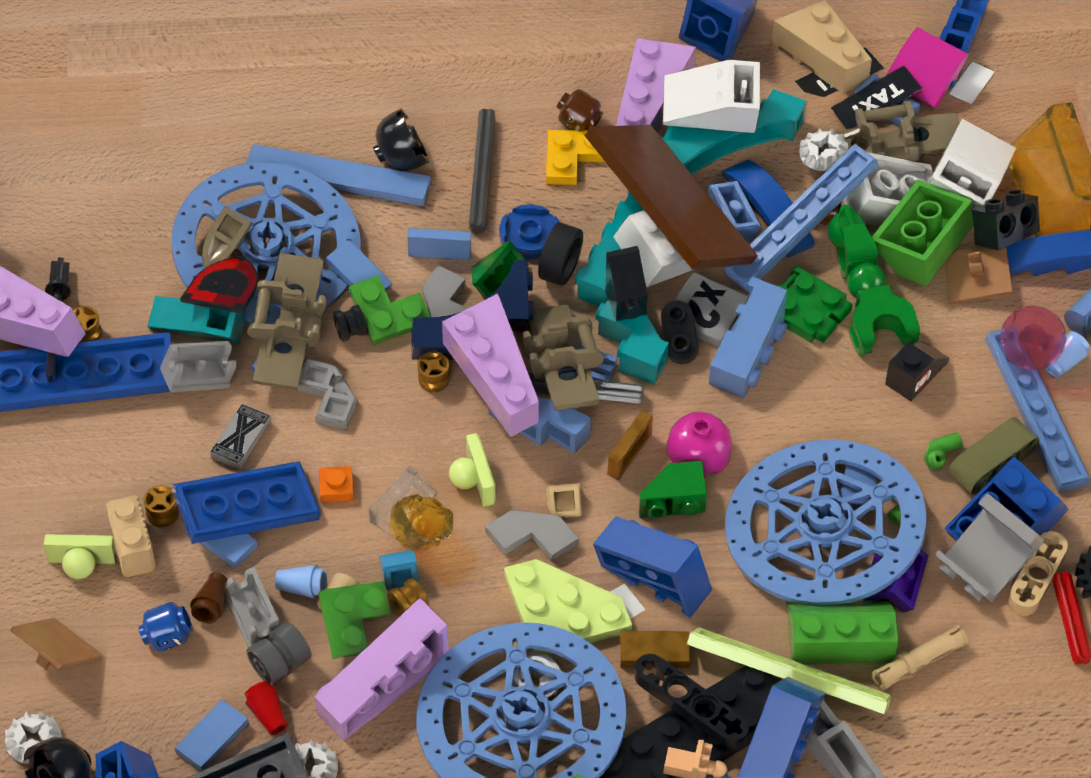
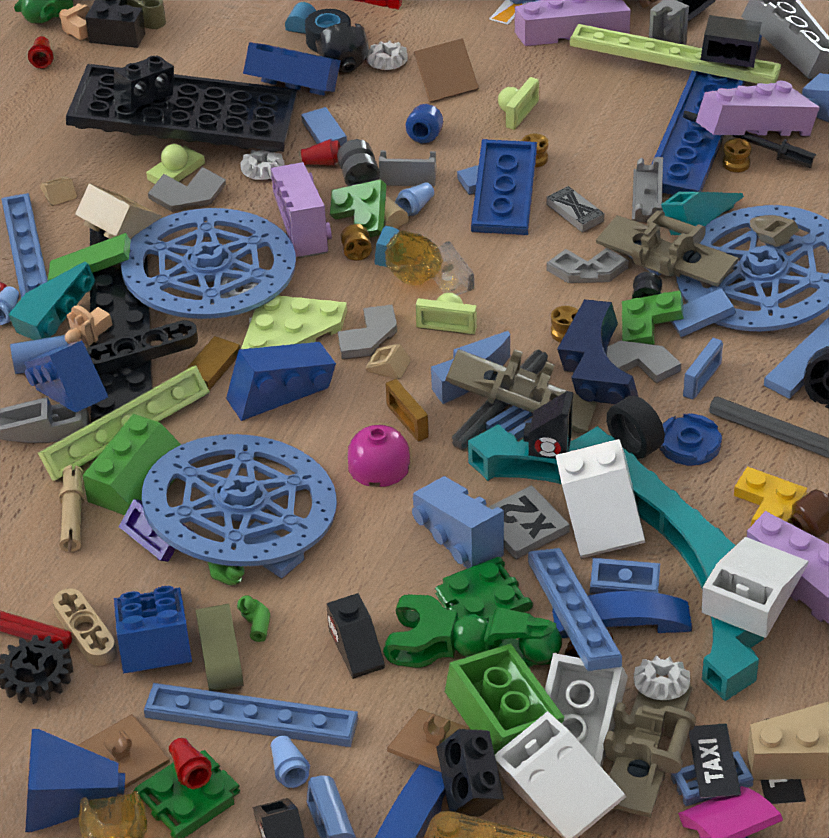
camera: 120 degrees right, 10 degrees down
(131, 536) = (513, 122): tan brick -> none
(209, 601) = (431, 143): reddish brown cone -> none
(223, 285) = (715, 208): shield -> none
(336, 484) = (494, 244): orange plate -> none
(491, 360) = (522, 323): lavender wedge -> none
(494, 268) = (653, 392): green slope -> none
(671, 196) = (639, 495): reddish brown tile -> none
(675, 491) = (338, 420): green slope -> none
(679, 330) = (504, 485): black plate -> none
(990, 551) = (121, 580): light grey panel -> none
(1033, 337) = (310, 721): clear pink tile -> none

